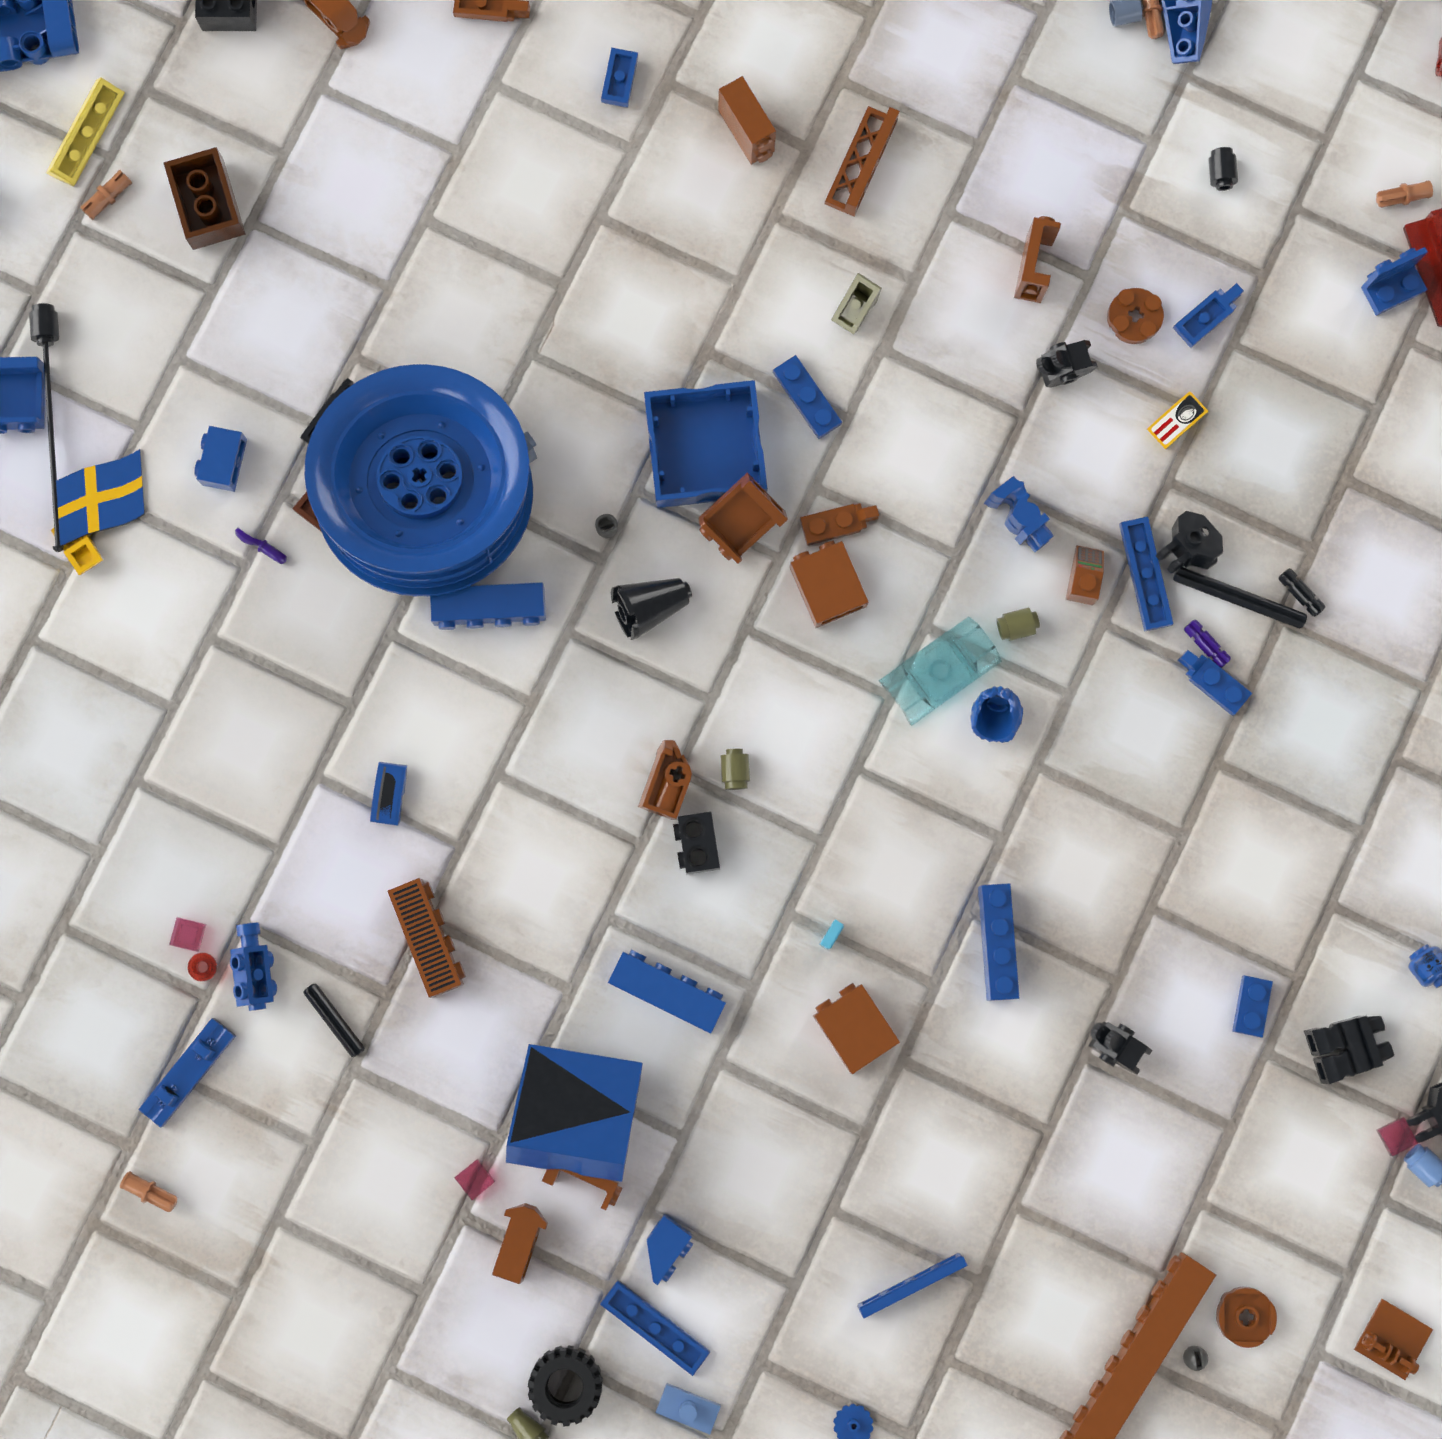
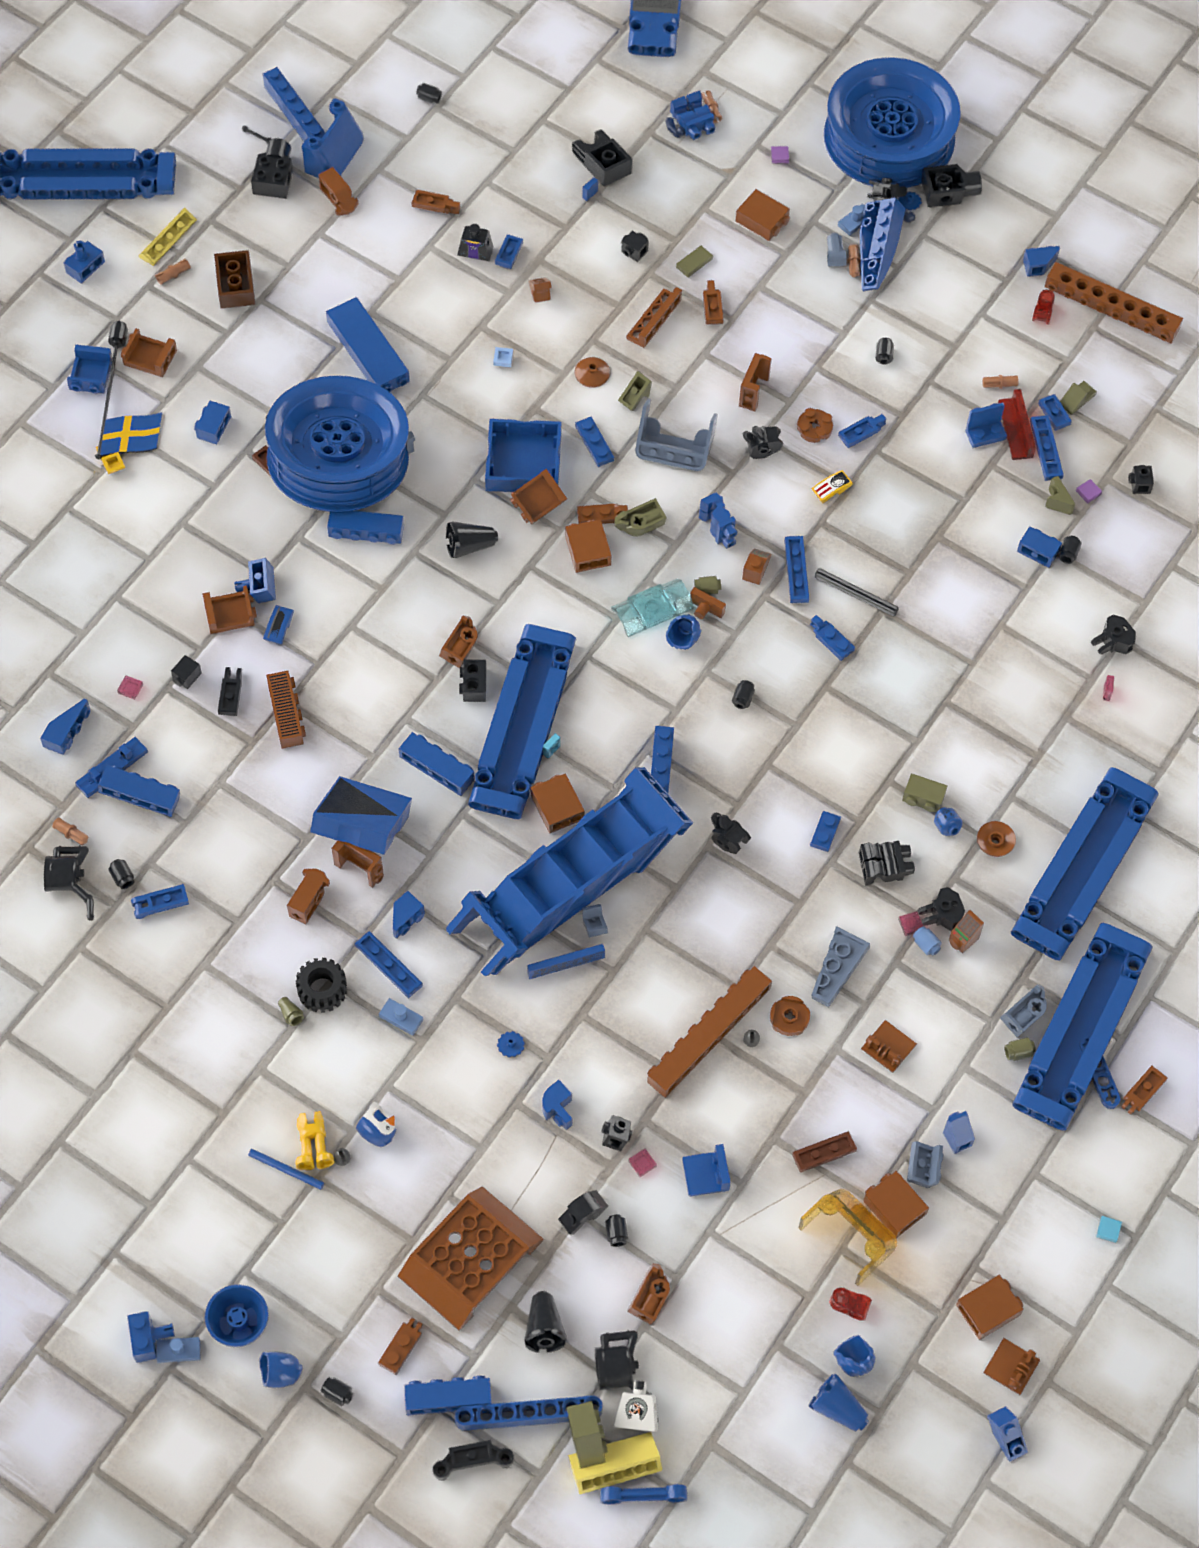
camera: 10 degrees right, 20 degrees down
(97, 350) = (148, 353): none -> dark orange panel
(100, 1029) = (61, 731): none -> blue slope
(153, 1264) = (65, 872): none -> black piece
(194, 963) = (135, 702): clear red plate -> none
(236, 1113) = (139, 790): none -> blue brick
(237, 1250) = (121, 874): none -> black brick
(252, 969) = (168, 709): blue brick -> none
(264, 546) = (228, 475): dark purple piece -> none
(265, 900) = (186, 672): none -> black brick
(304, 1283) = (160, 901): none -> blue plate
(310, 781) = (229, 611): none -> dark orange panel
(333, 1020) = (214, 750): black axle -> none
(339, 921) = (230, 693): none -> black hinge
(347, 729) = (260, 581): none -> blue brick
(433, 285) = (367, 345): none -> blue brick
(474, 1179) = (286, 858): clear pink tile -> none
(566, 74) = (475, 243): none -> black torso
(605, 522) = (451, 493): dark grey hinge -> none
(643, 270) = (503, 357): none -> light blue plate
(679, 136) = (540, 289): none -> dark orange slope
(735, 769) = (506, 642): olive brick -> none
(747, 120) = (584, 282): dark orange brick -> none
(779, 284) = (592, 377): none -> dark orange dish
(781, 899) = (522, 721): none -> blue panel
(812, 36) = (634, 245): none -> black brick
(906, 1148) = (576, 868): none -> blue piece
(907, 49) = (694, 261): none -> olive tile
(911, 518) = (647, 515): none -> olive piece
(931, 393) = (673, 450): none -> sand blue windscreen
(942, 1215) = (594, 921): none -> sand blue bracket
(948, 125) = (712, 304): none -> dark orange hinge
(1021, 657) = (706, 604): none -> dark orange tile
(1100, 802) = (743, 694): none -> black brick
(1192, 544) = (827, 555): black hinge -> none
(1207, 643) = (830, 615): dark purple axle -> none
(1301, 592) = (898, 595): black axle -> none
(1304, 1223) = (839, 964): none -> sand blue wing
(1389, 924) = (924, 793): none -> olive brick

